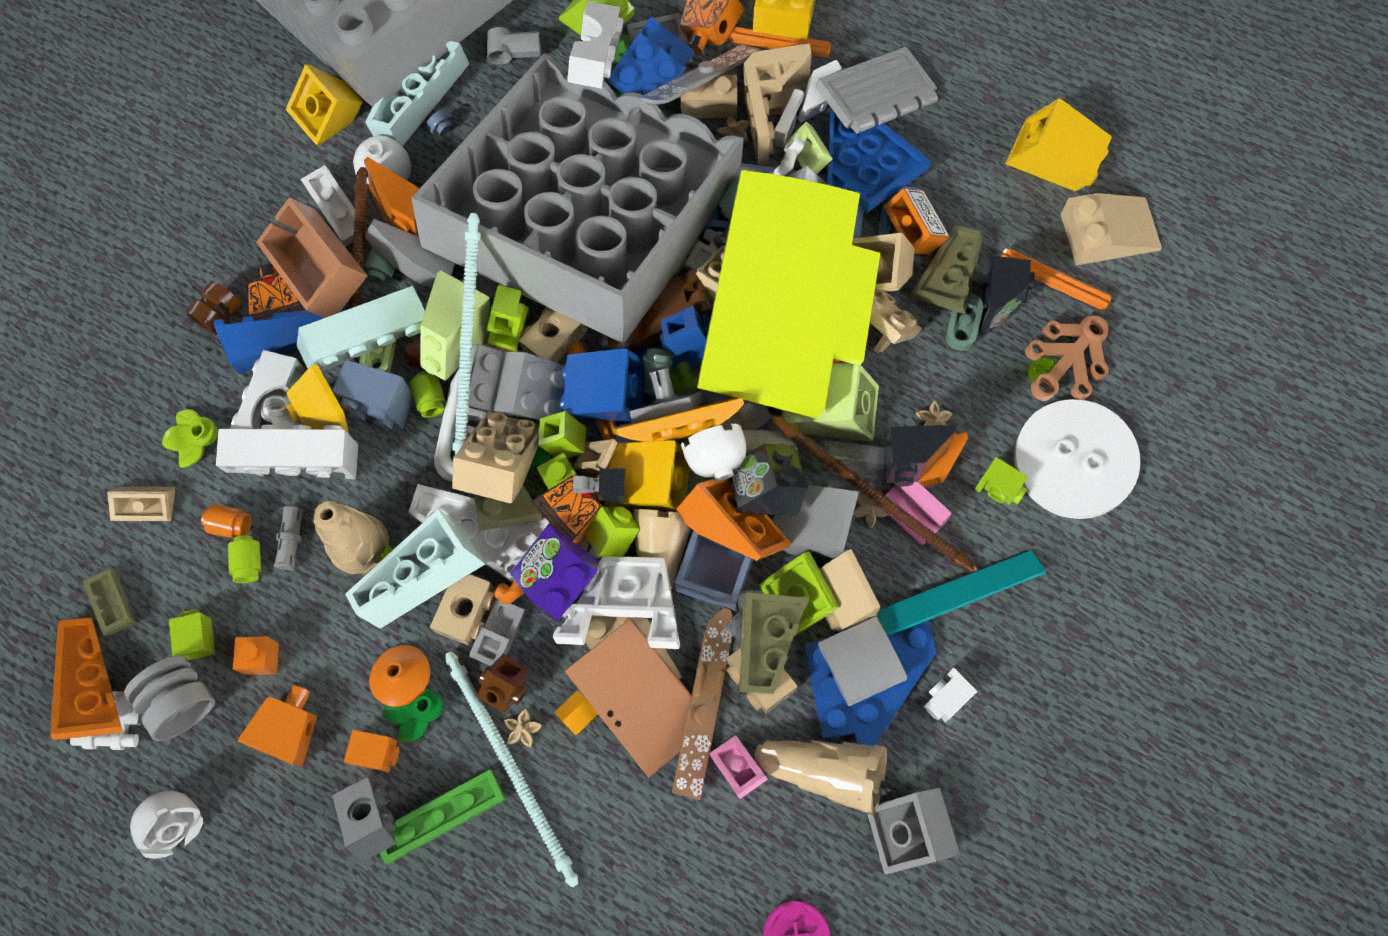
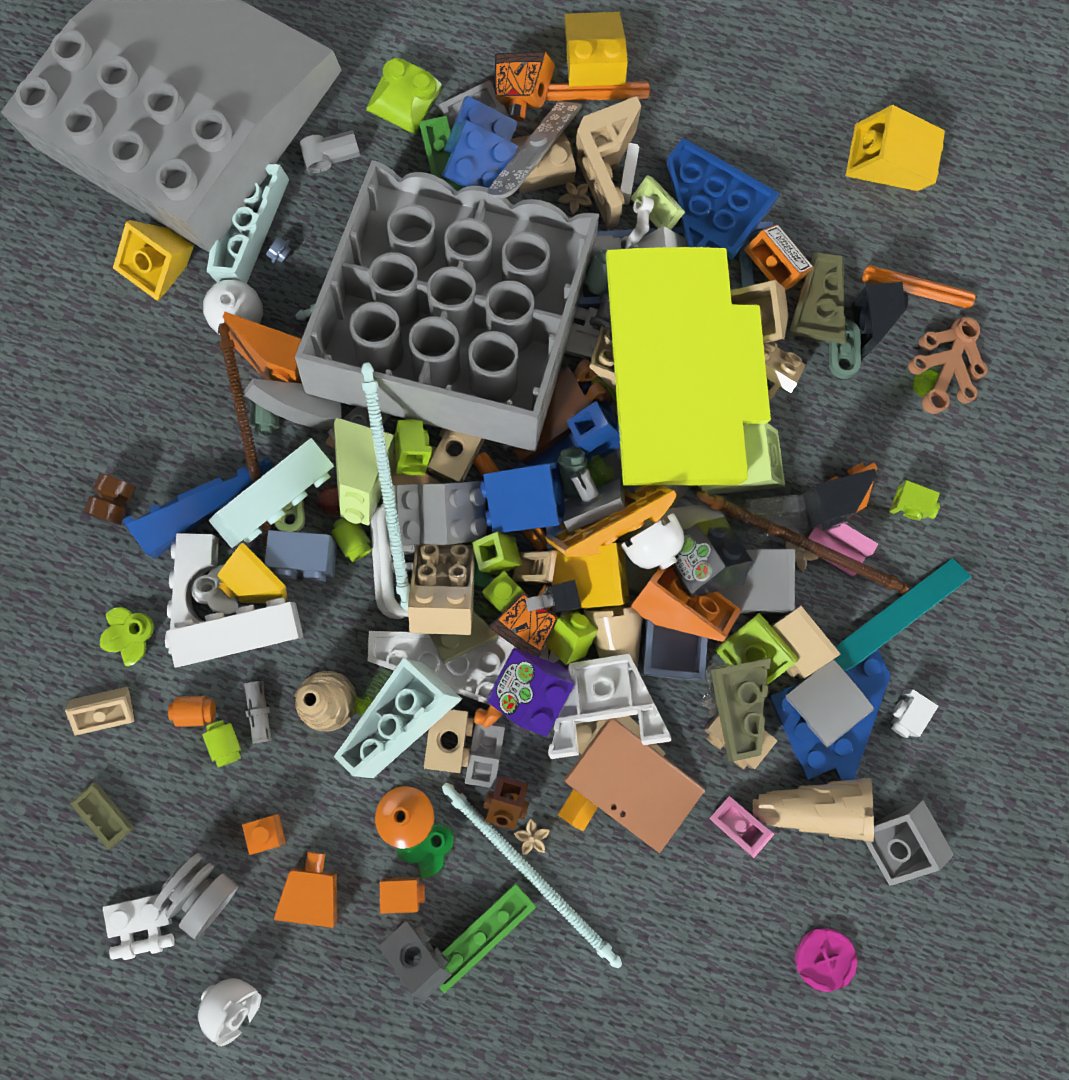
camera: 25 degrees left, 10 degrees up
(81, 689) = (106, 905): orange wing -> none
(192, 635) = (194, 829): lime brick -> none
(270, 295) = (167, 474): torso -> none
(312, 260) = (198, 430): nougat piece -> none
(332, 203) = (196, 362): white plate -> none
(593, 57) = (427, 158): white arch -> none
(703, 707) = (694, 775): medium nougat piece -> none
(813, 100) = (649, 143): white slope -> none
(878, 90) = (710, 126): light grey hinge -> none
(934, 416) = (837, 452): tan plant -> none
(1077, 458) = (976, 460): white plate -> none
(1108, 227) = (958, 223): tan slope -> none

